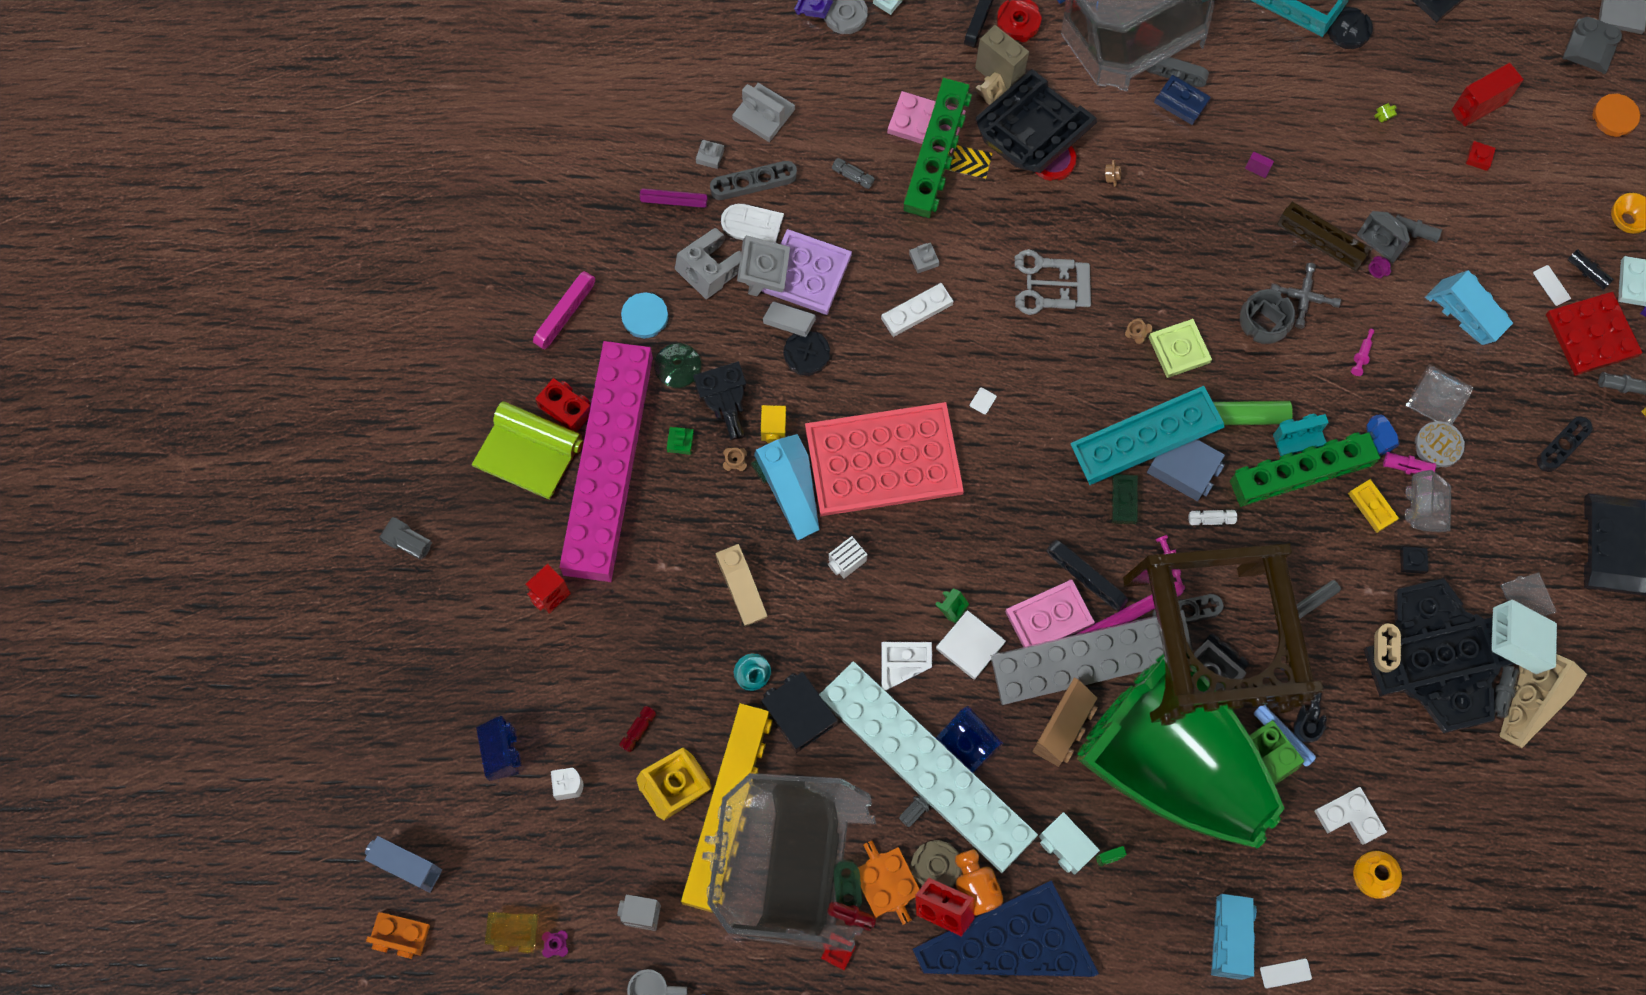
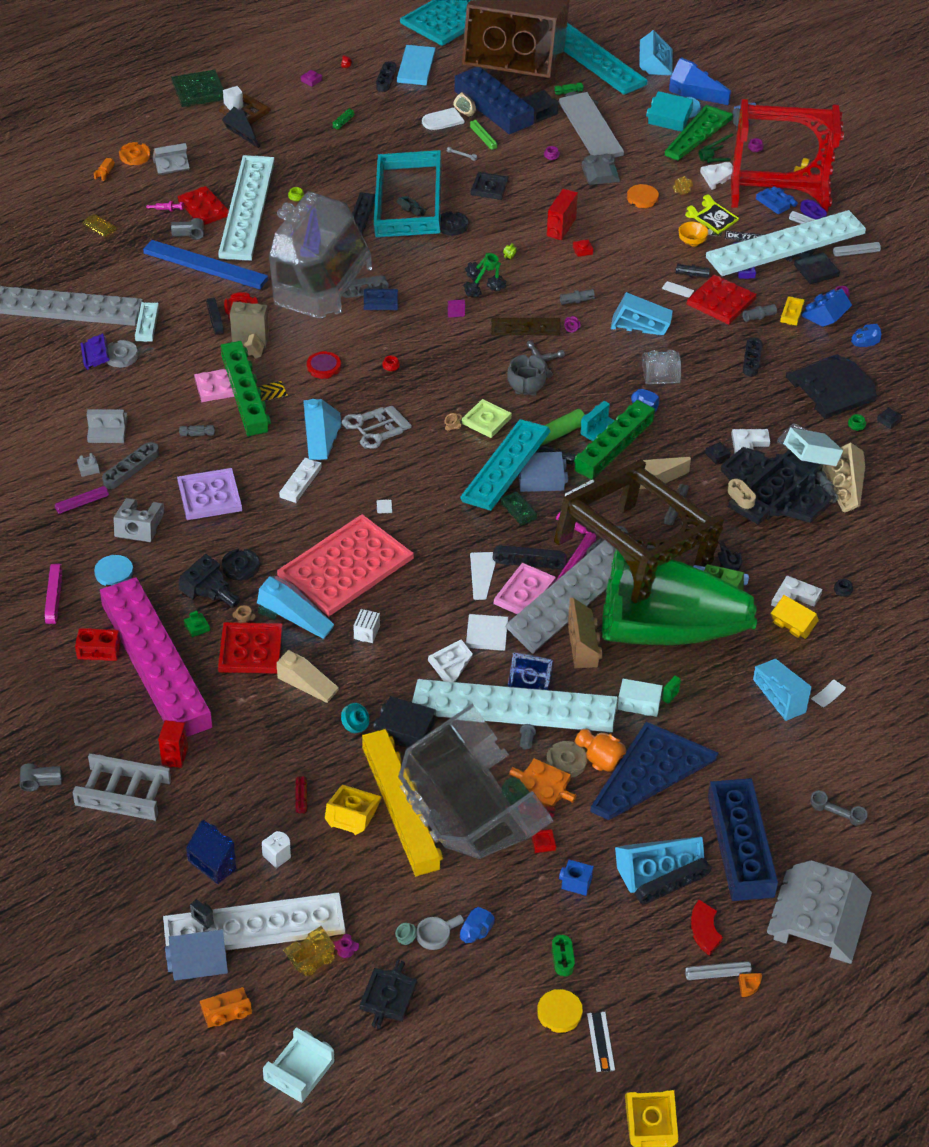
camera: 35 degrees left, 25 degrees down
(439, 819) = (202, 913): none -> black plate
(449, 608) = (118, 803): none -> light grey fence
(486, 858) = (266, 921): none -> white plate
(527, 450) = (90, 681): lime door -> none
(621, 972) = (406, 933): none -> sand green plate
(639, 912) = (392, 886): light grey brick -> none
(677, 375) = (160, 587): clear green dish -> none
(711, 507) = (250, 647): none -> red plate
(752, 221) = (149, 488): white window -> none
(763, 265) = (178, 499): light grey bracket -> none
(773, 423) = (252, 580): yellow brick -> none
(777, 386) = (240, 564): none -> black tile
(789, 319) = (218, 523): light grey tile -> none
(806, 354) = (245, 536): black tile -> none
(924, 257) = (282, 451): light grey tile -> none
(945, 906) = (590, 763): red brick -> none
(953, 606) = (457, 615): green tile -> none
(987, 249) = (321, 427): none -> medium azure wedge
(1025, 557) = (482, 570): none -> white sticker
(1032, 123) = (296, 350): black wedge -> none
(1113, 173) = (368, 353): medium nougat plate -> none
(1128, 197) = (391, 363): none -> red plate
(1230, 459) = (565, 455): none -> black axle
(1318, 547) = (668, 468): none -> tan slope
(1321, 853) = (794, 617): none -> yellow brick
(1330, 128) = (476, 271): none -> black plant
(1362, 357) = (599, 370): dark pink piece -> none
(1368, 882) = (836, 619): light orange piece -> none
(1373, 506) = (671, 437): yellow plate -> none
(1385, 234) = (561, 302): dark grey slope -> none
(1407, 464) = (663, 410): dark pink pin -> none
(1418, 840) = (843, 587): none -> black plate
(1429, 502) = (701, 417): clear brick -> none
(1439, 444) = (682, 391): light grey tile -> none
(1462, 561) = (750, 438): none -> white plate
(1621, 616) = (857, 422): none -> green plate

